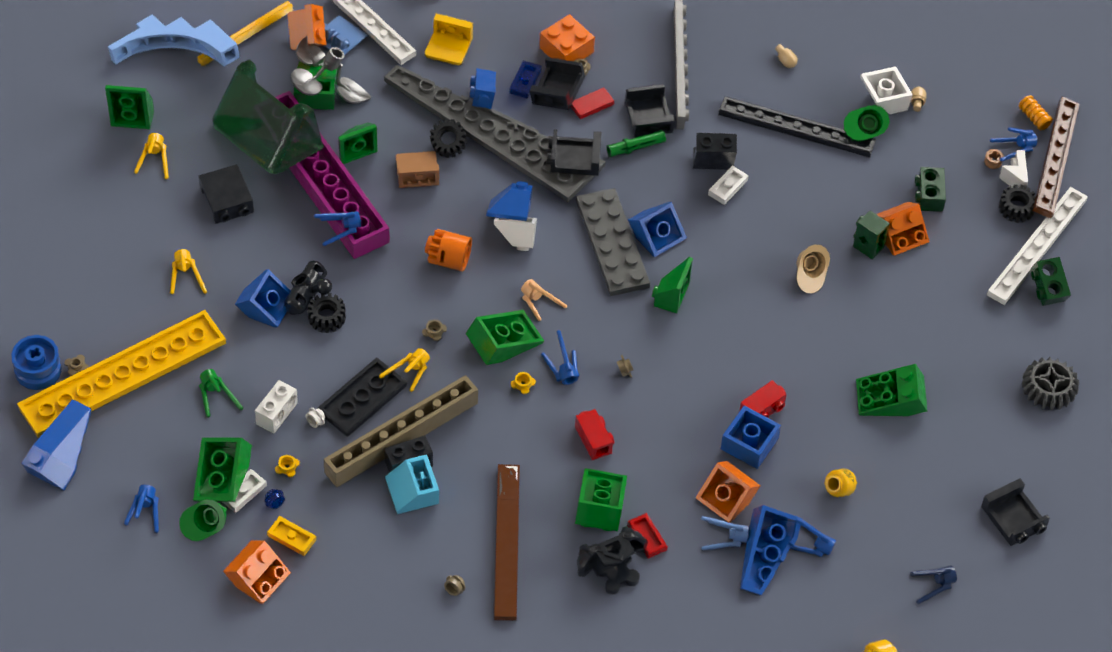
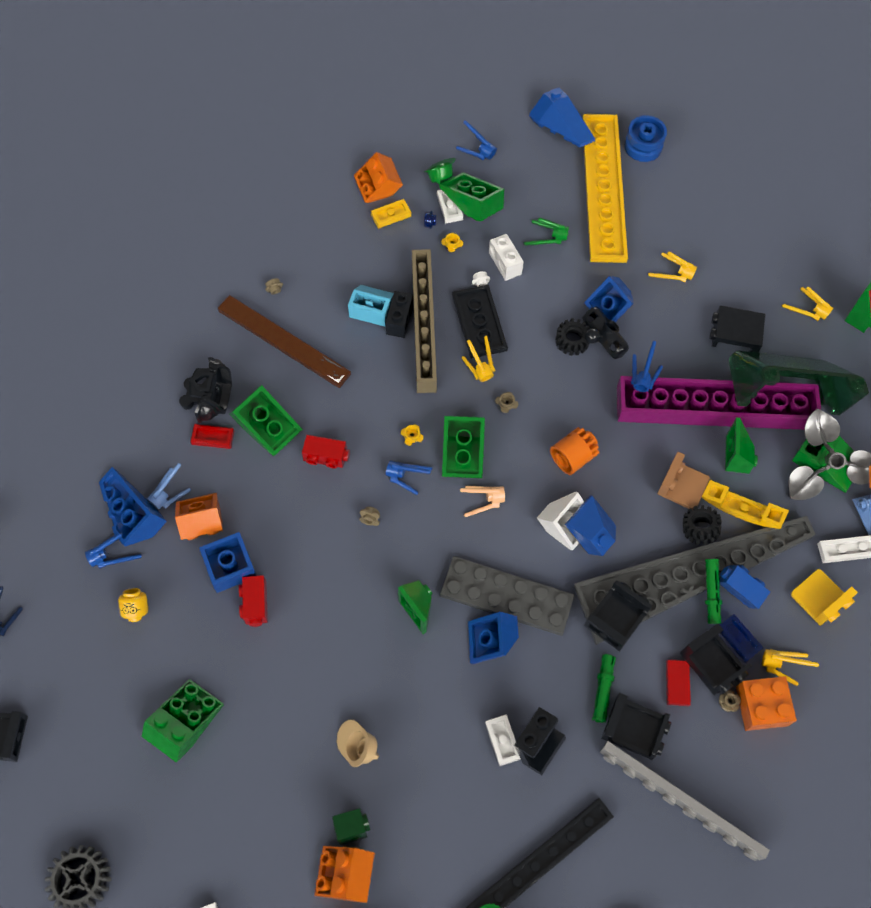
camera: 125 degrees right, 10 degrees up
(70, 363) = (630, 165): dark tan plate -> none
(406, 117) = (744, 508): none -> yellow slope
(509, 104) = (713, 591): none -> green pin
(525, 52) = (773, 659): none -> yellow plant

